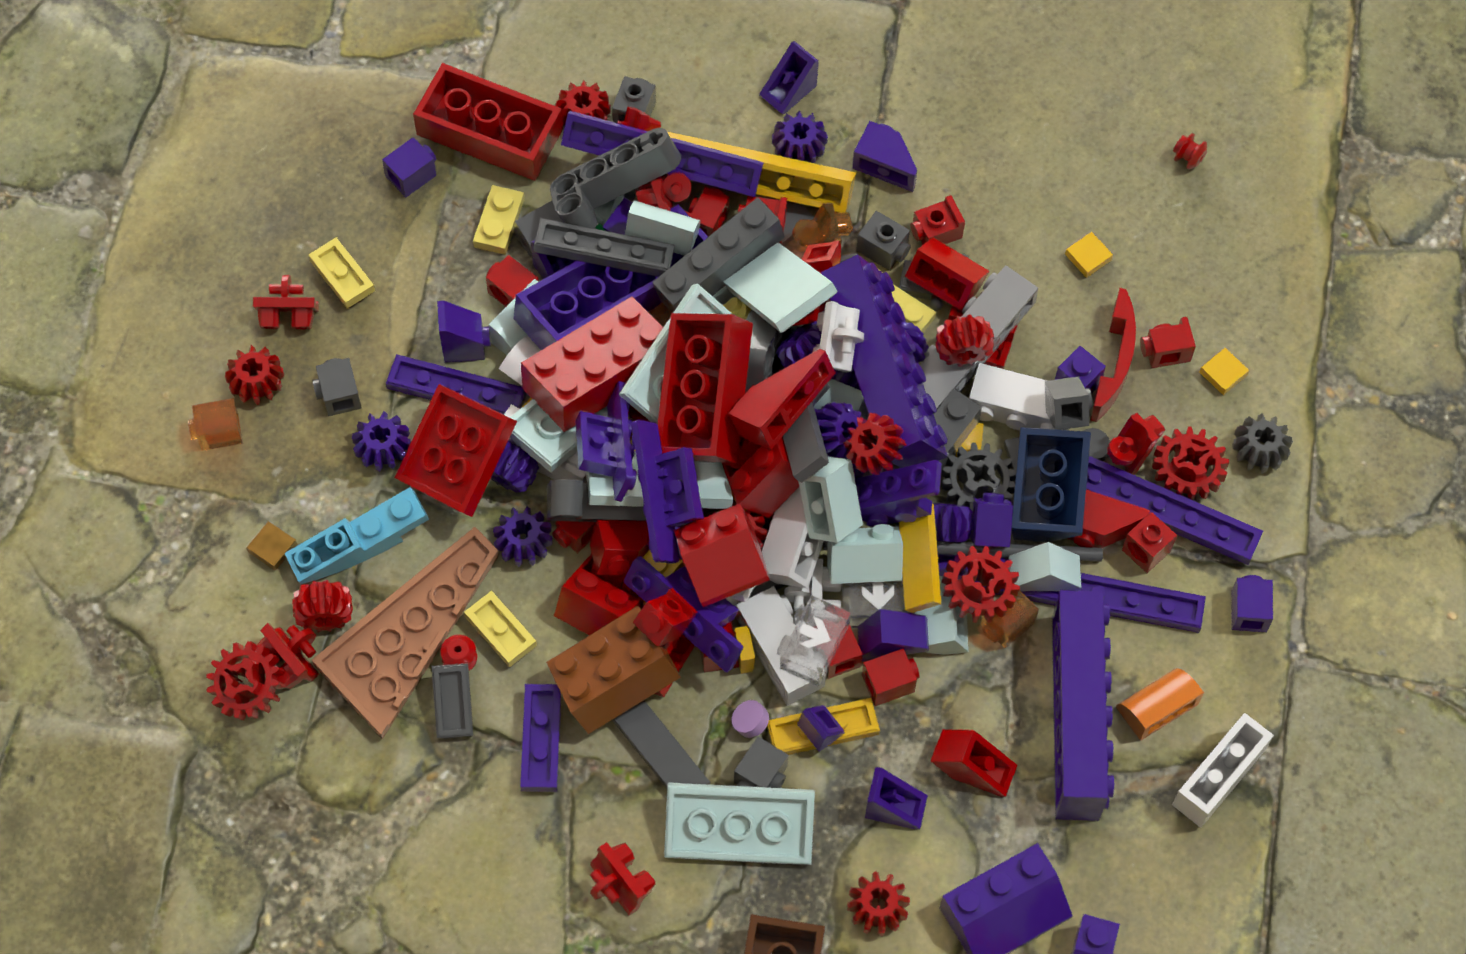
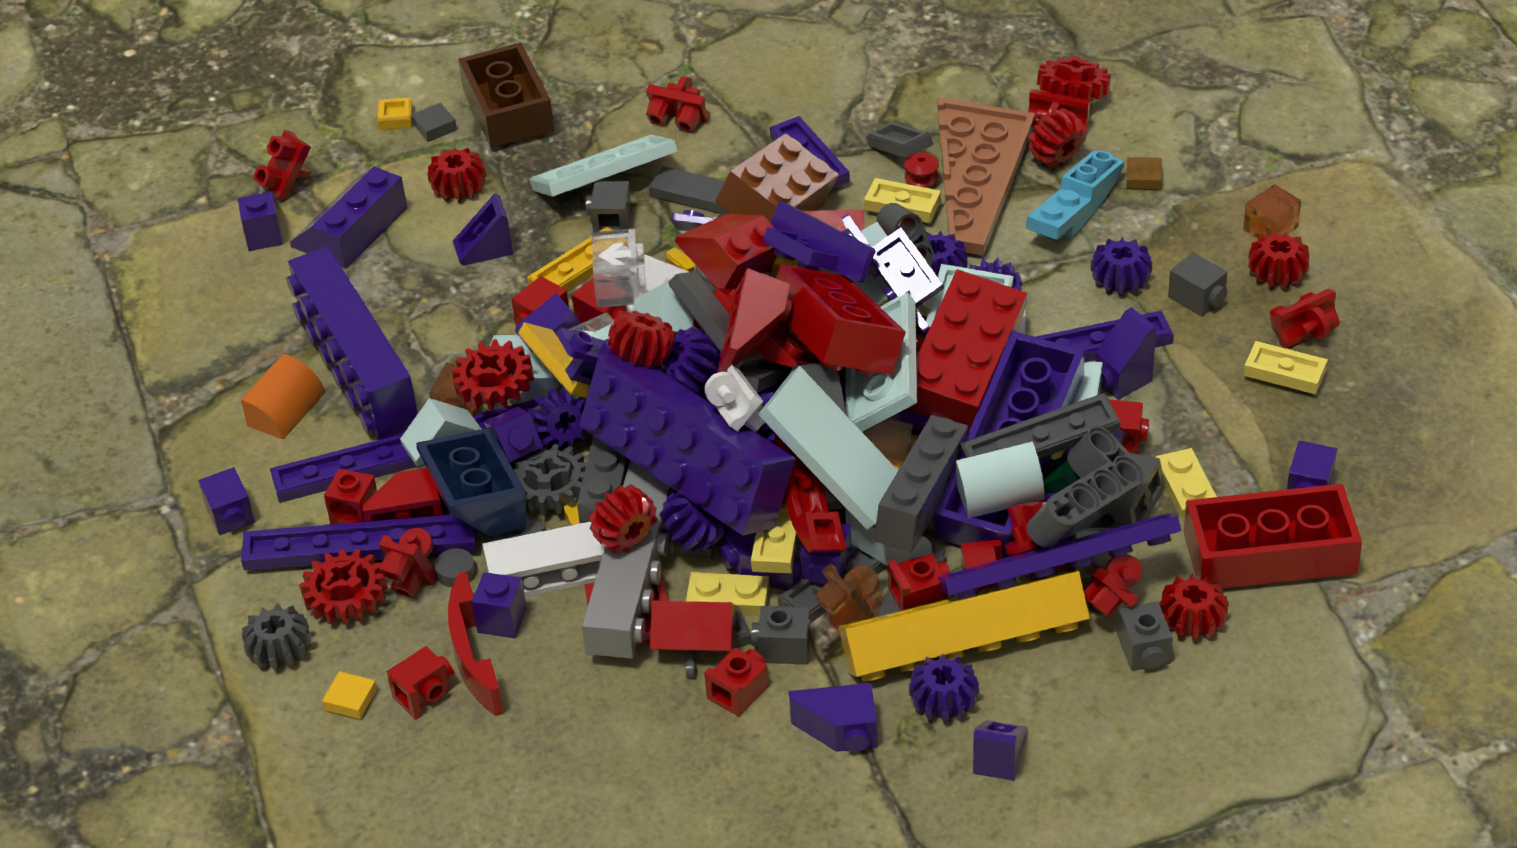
camera: 155 degrees right, 20 degrees down
(455, 450) = (1042, 260): red plate -> none
(665, 617) = (761, 199): red brick -> none
(750, 718) = (647, 234): lavender piece -> none
(820, 726) = (575, 245): dark purple slope -> none
(973, 761) = (430, 284): red slope -> none
(1067, 403) = (489, 530): dark grey brick -> none
(1089, 254) = (556, 737): yellow tile -> none
(1222, 770) = (198, 363): white brick -> none

